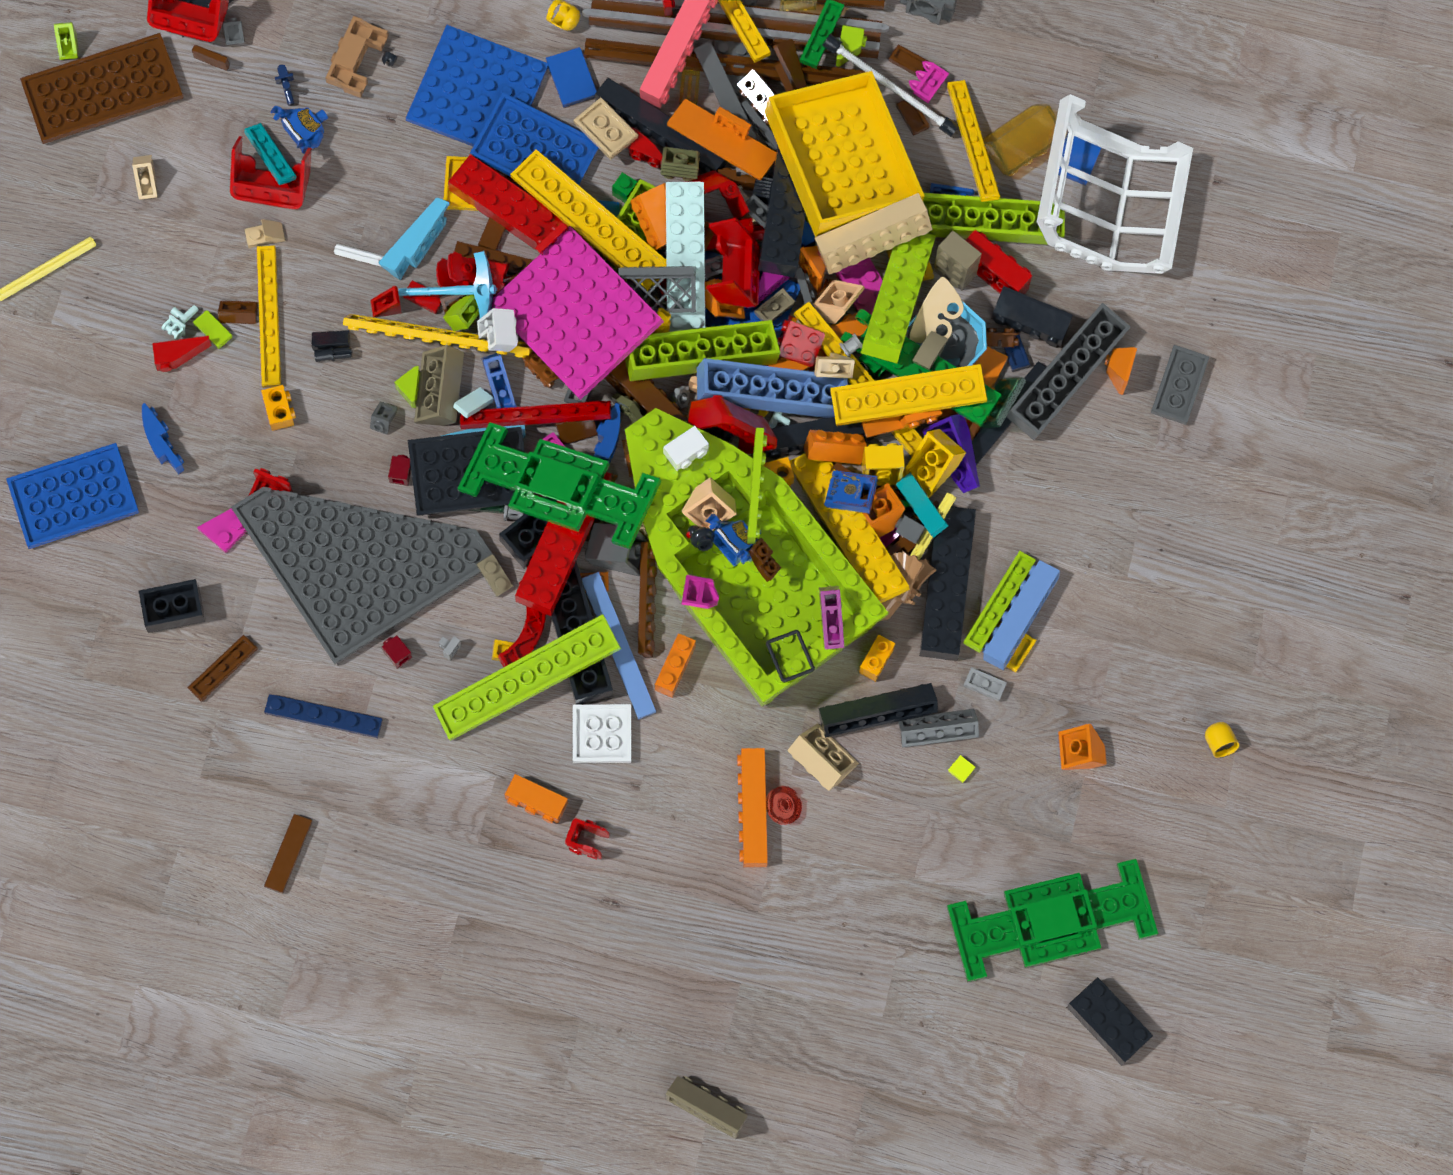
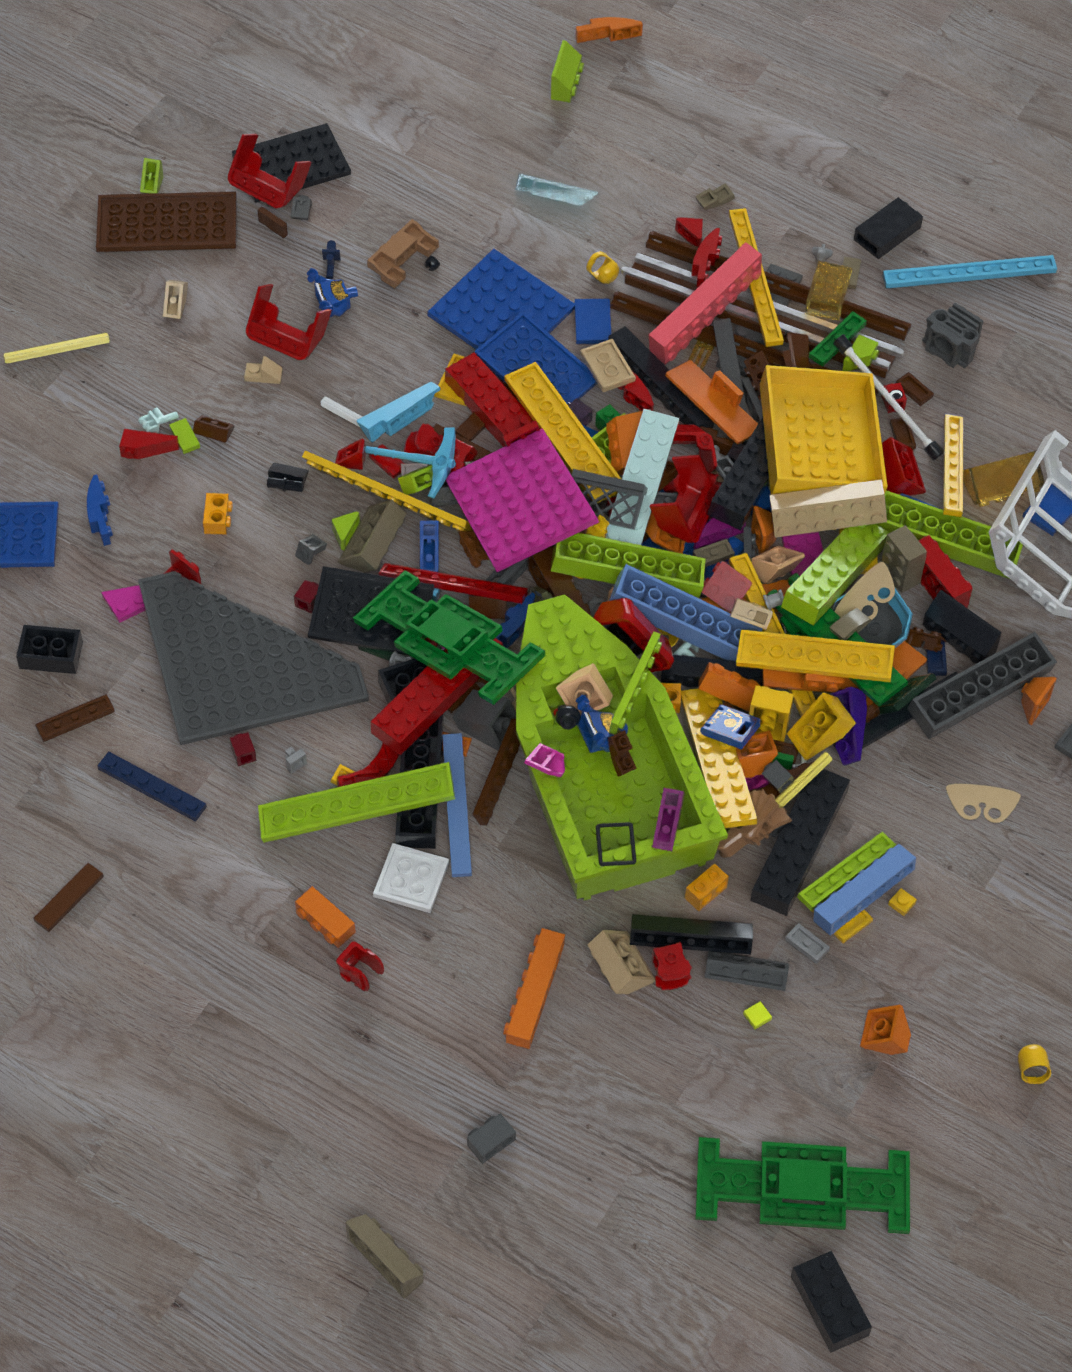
camera: 20 degrees right, 15 degrees down
(268, 316) = (240, 437): yellow tile -> none
(270, 154) = (294, 309): teal tile -> none
(473, 402) = (398, 557): light aqua tile -> none
(494, 575) = (360, 708): dark tan plate -> none
(498, 329) = (443, 495): white brick -> none
(594, 187) = (581, 411): none -> clear purple brick
(675, 665) = (505, 836): orange brick -> none
(680, 163) = (666, 405): olive brick -> none
(686, 448) = (579, 632): white brick -> none
(762, 966) = (491, 1138): none -> dark grey brick
(783, 805) = (565, 994): clear red tile -> none
(870, 748) = (671, 967): none -> red piece
(894, 75) = (897, 392): none -> red brick
(922, 505) = (796, 758): teal tile -> none
(925, 157) = (901, 469): none -> red slope
(930, 81) = (927, 409): dark pink plate -> none
(1057, 614) = (902, 902): none -> yellow plate
(1090, 483) = (973, 795): none -> tan piece

